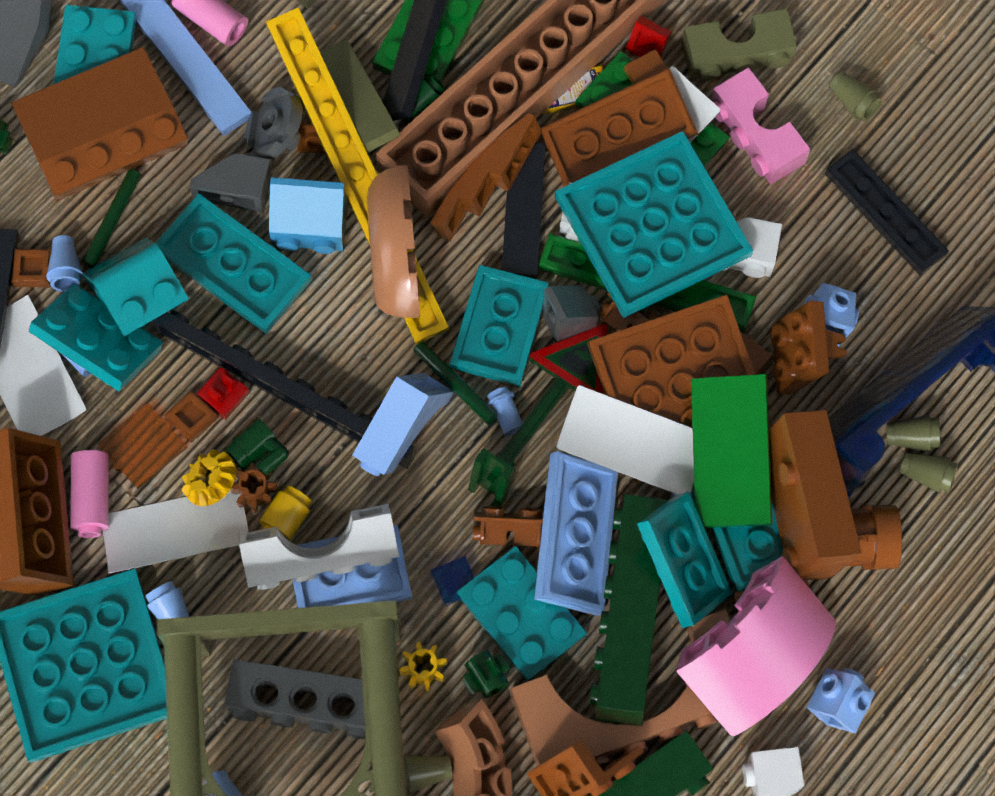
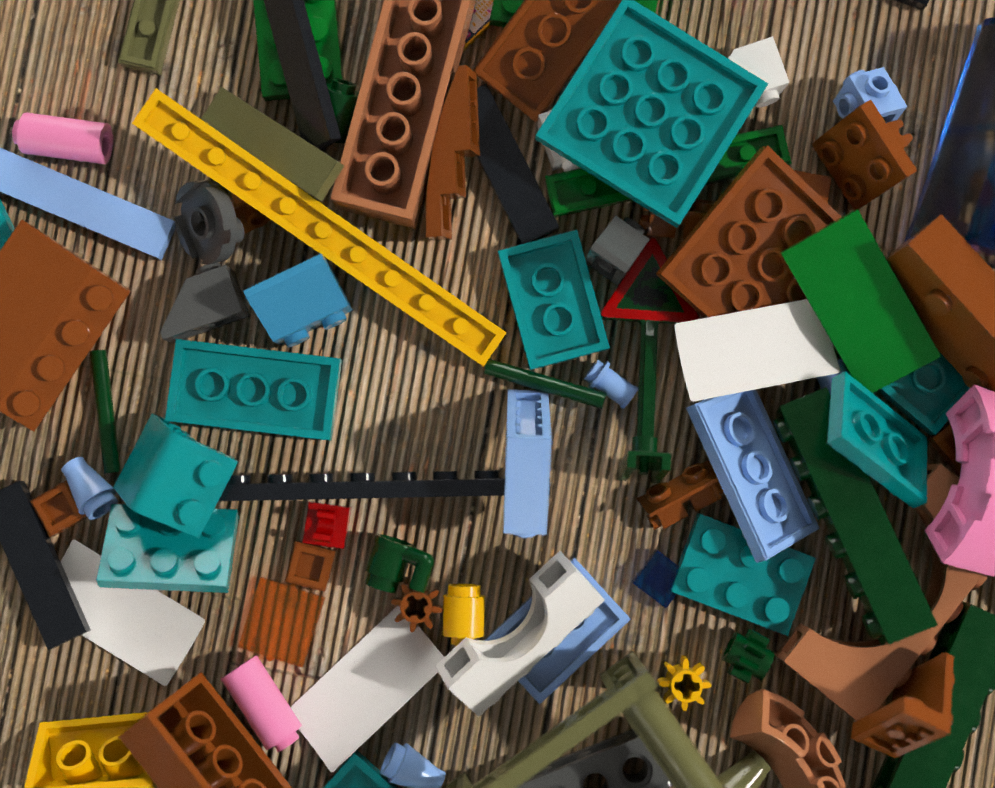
camera: 30 degrees left, 15 degrees up
(220, 479) = (382, 620): yellow gear -> none
(390, 238) = (406, 284): nougat brick -> none

